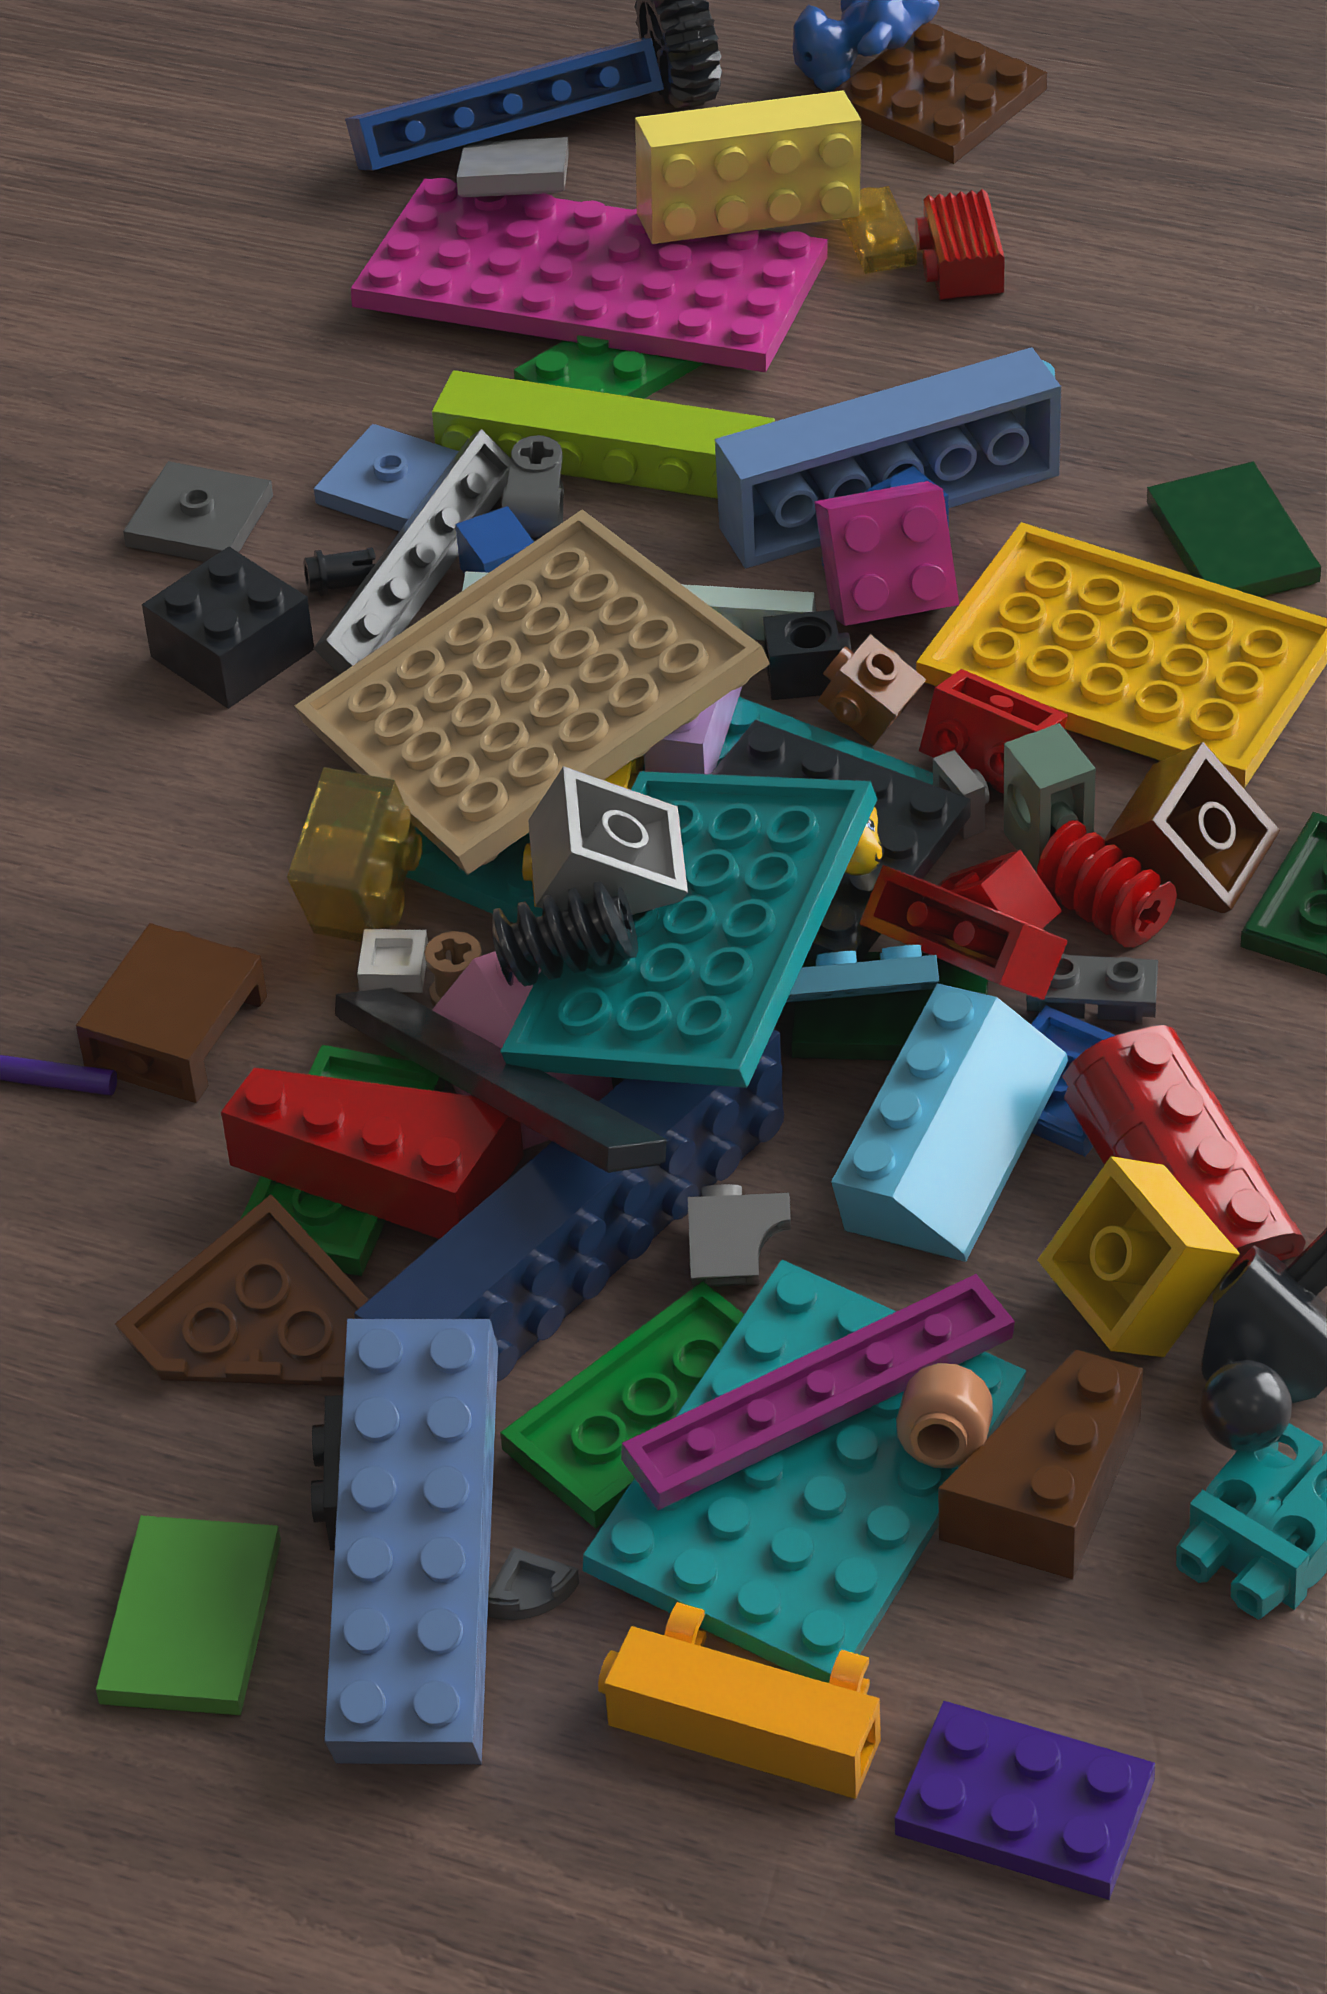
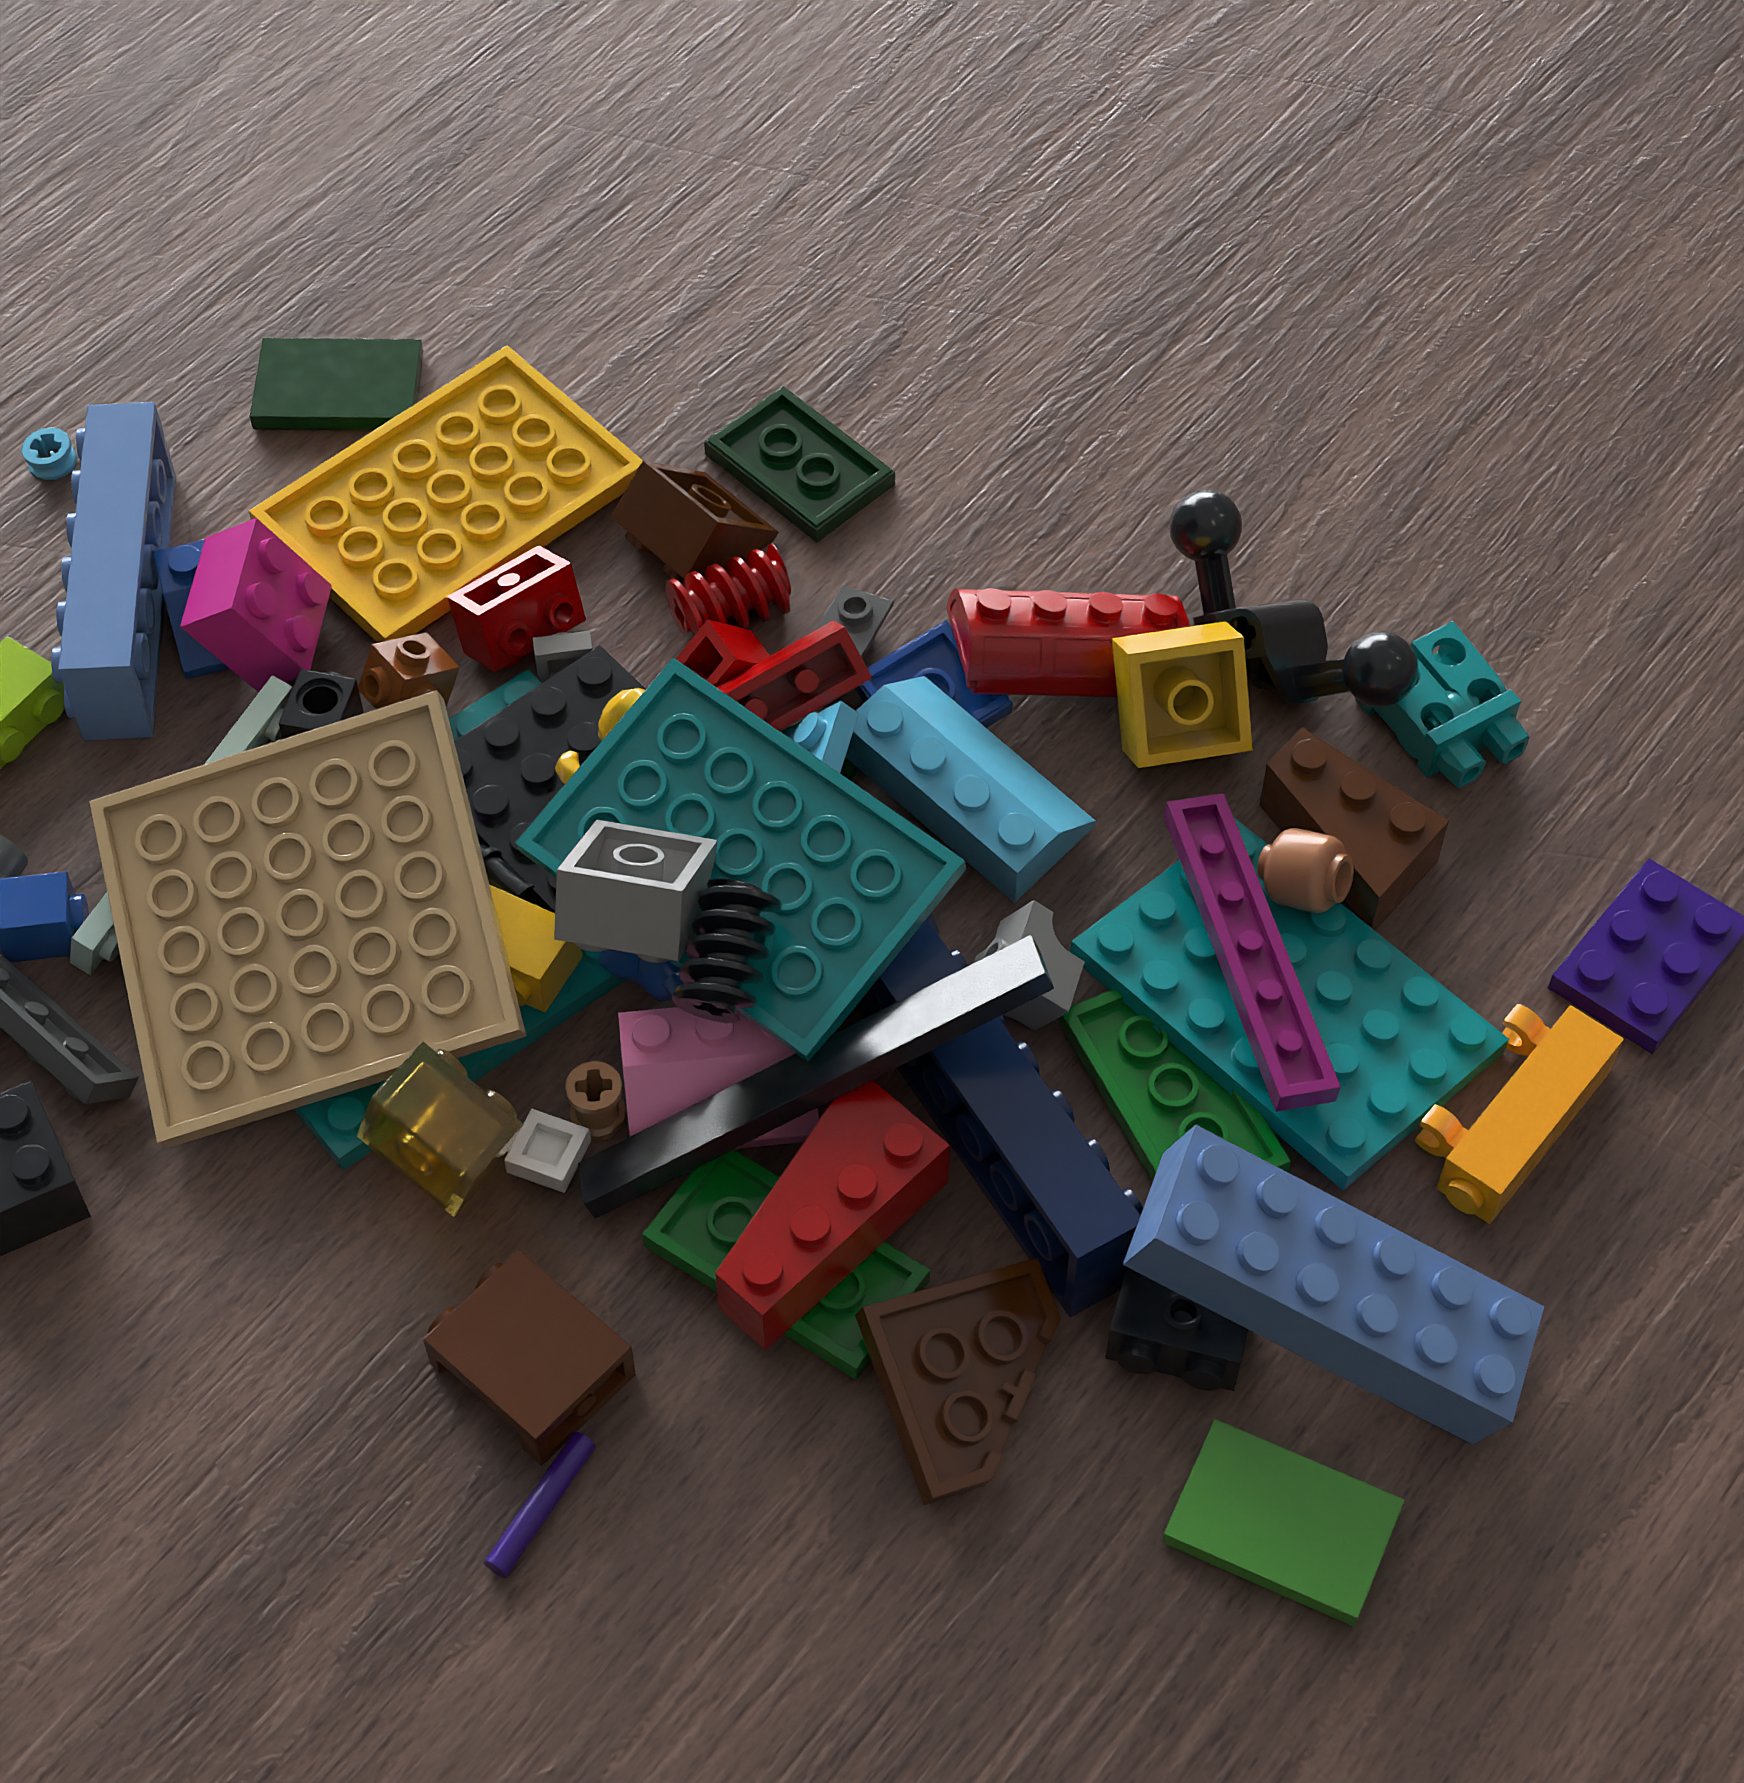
camera: 75 degrees left, 10 degrees up
(1045, 788) = (629, 591): sand green brick -> none

